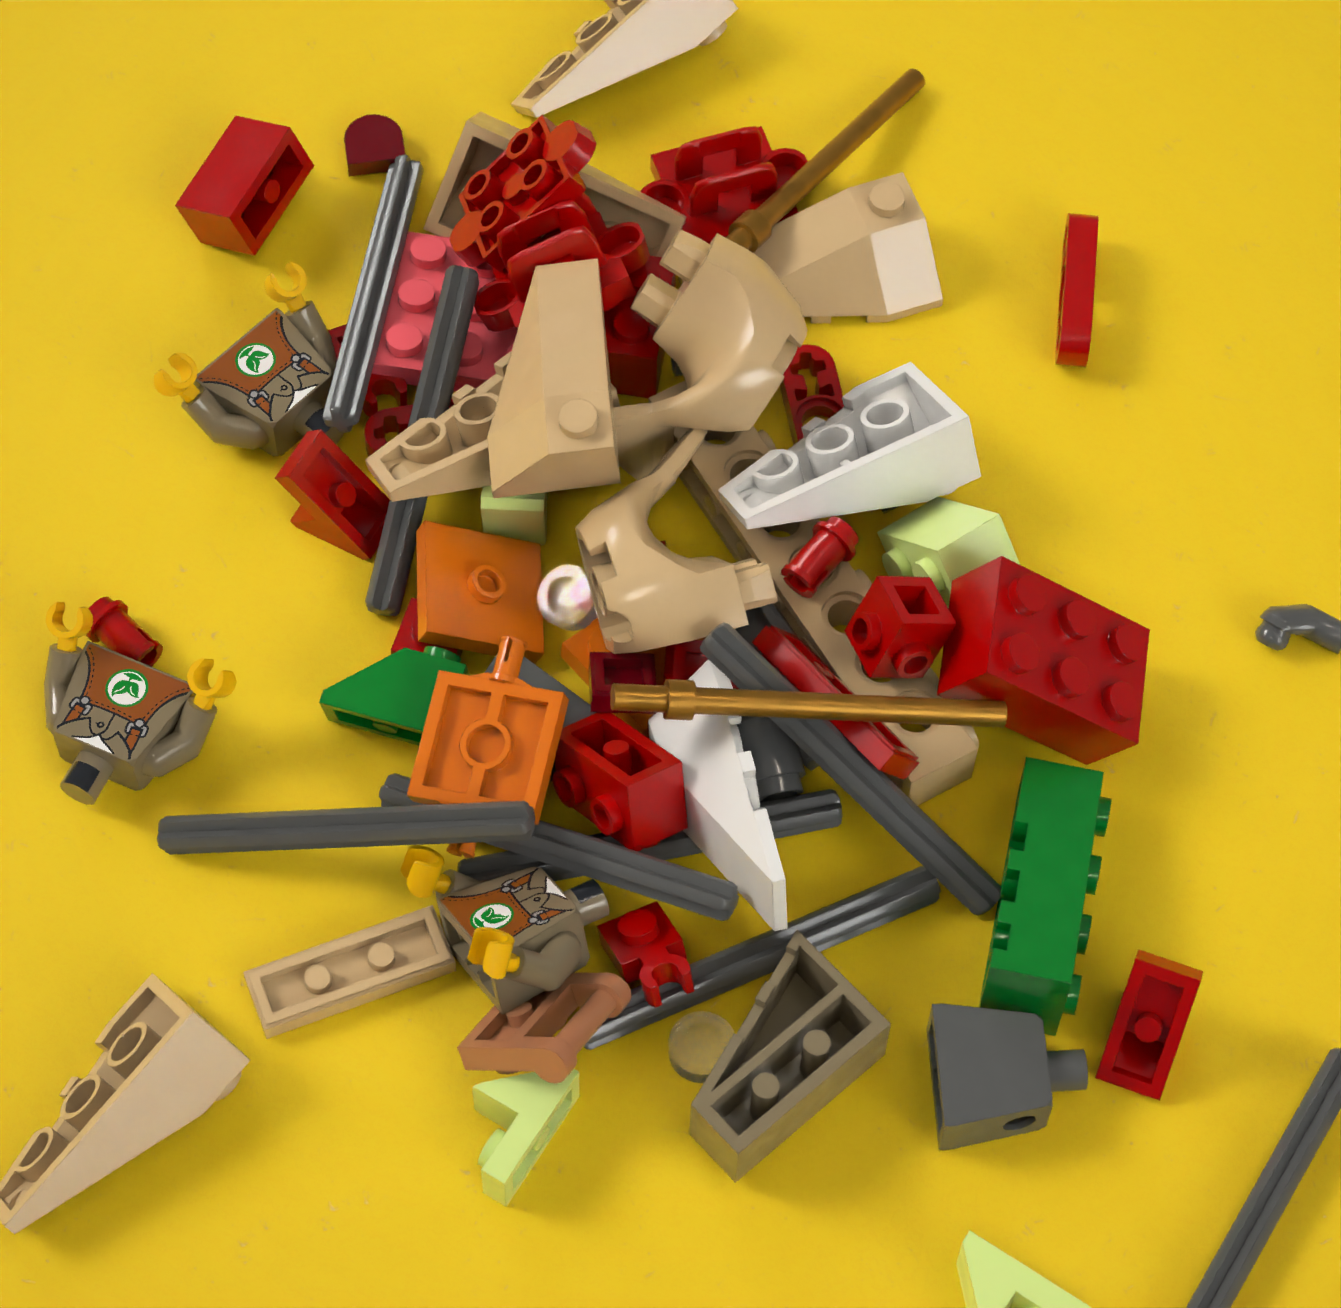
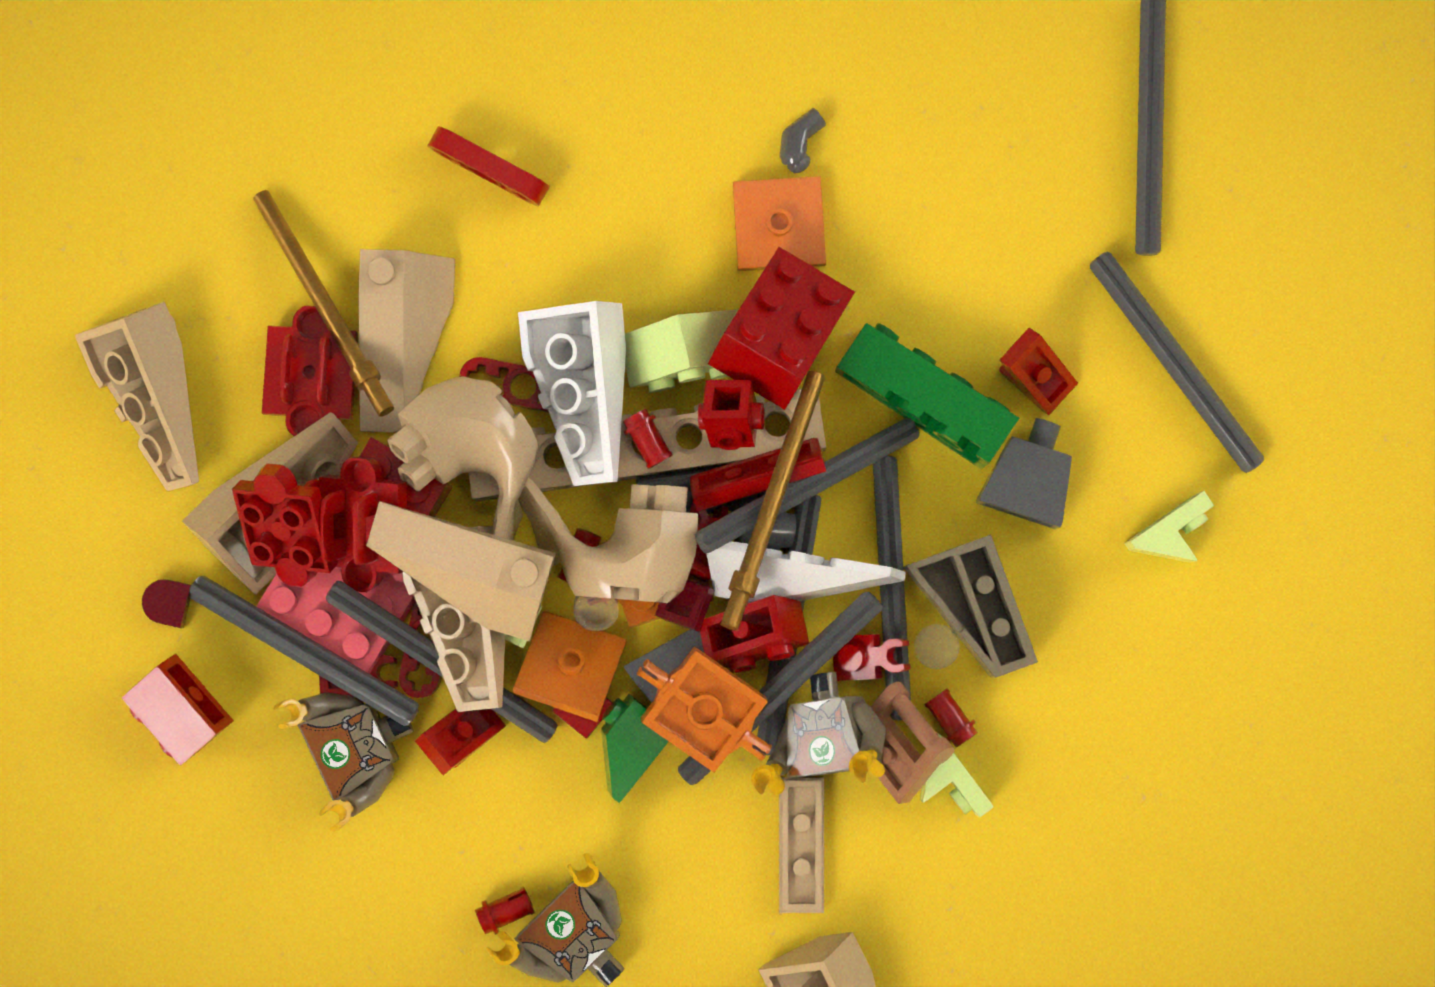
camera: 60 degrees left, 25 degrees up
(347, 827) = (719, 818): dark grey axle -> none
(600, 1109) = (951, 718): none -> red pin
(1193, 643) = (778, 215): none -> orange plate

